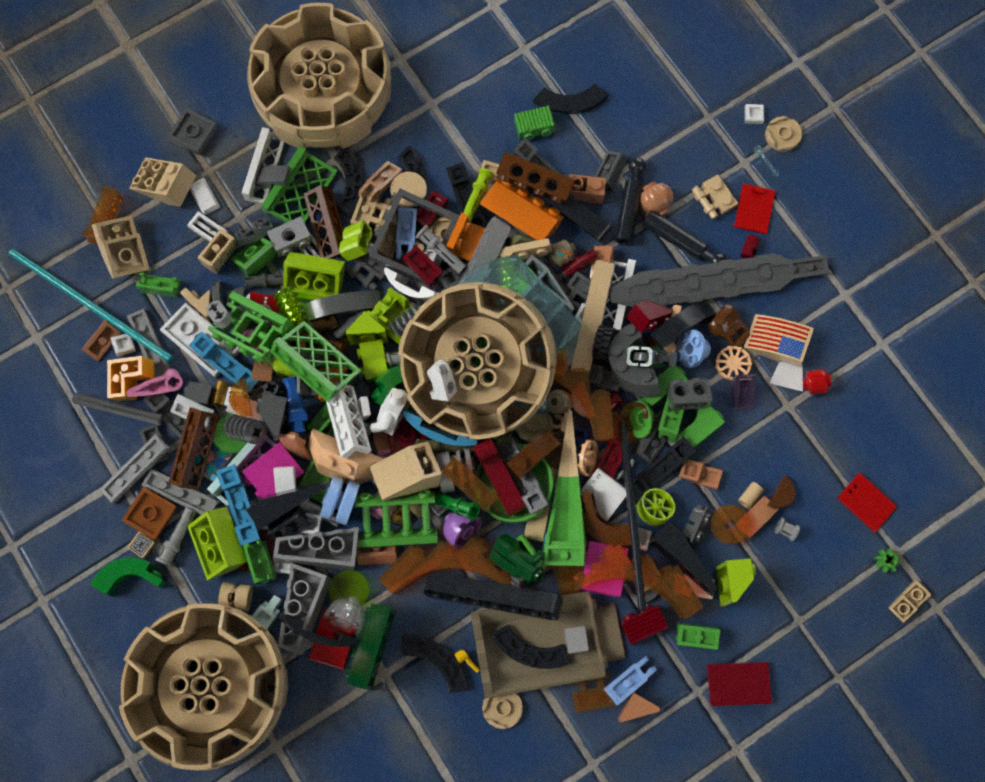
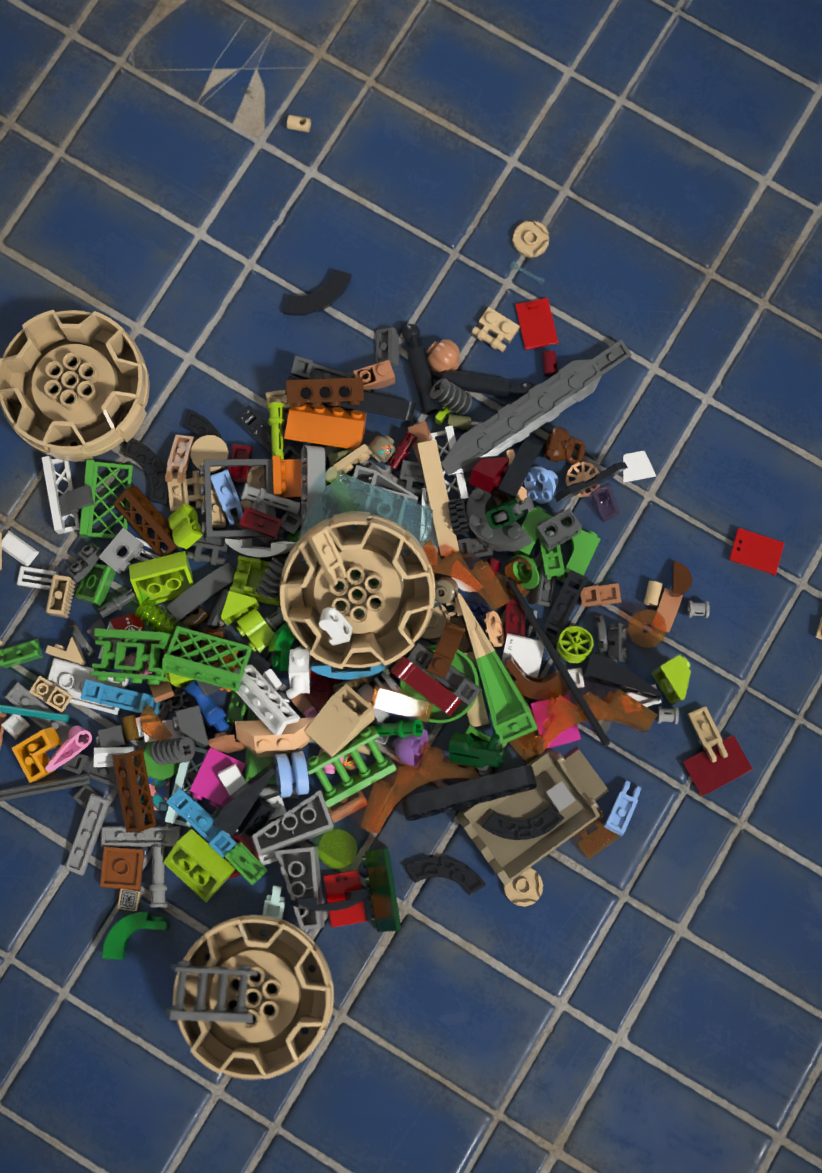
camera: 25 degrees left, 5 degrees up
(143, 672) = (220, 1012): none -> dark grey fence
(166, 331) = (51, 694): none -> tan slope
(219, 314) = (95, 653): light grey beam -> none
(242, 598) = (245, 900): tan wheel -> none
(346, 614) = (348, 872): clear cylinder -> none
(462, 656) = (465, 858): yellow hand -> none
(463, 310) = (327, 555): none -> tan hinge
(534, 123) = (296, 334): bright green brick -> none
(630, 249) = (441, 415): none -> lime tile
(636, 707) = (639, 829): nougat slope -> none
(643, 625) = (612, 755): dark red brick -> none
(644, 262) = (461, 422): none -> olive piece
(647, 234) = (451, 396): none -> dark grey piece
(685, 509) = (601, 633): none -> dark grey tile
(697, 635) = (663, 740): bright green hinge -> none
(713, 613) = (667, 715): none -> light grey bush
(727, 367) = (582, 486): none -> black tile
(743, 647) = (707, 732): none -> tan hinge
(754, 114) = (495, 231): white tile -> none
(778, 339) = (613, 438): slope -> none
(817, 381) = (665, 462): red head -> none
(891, 564) = (791, 595): bright green gear -> none

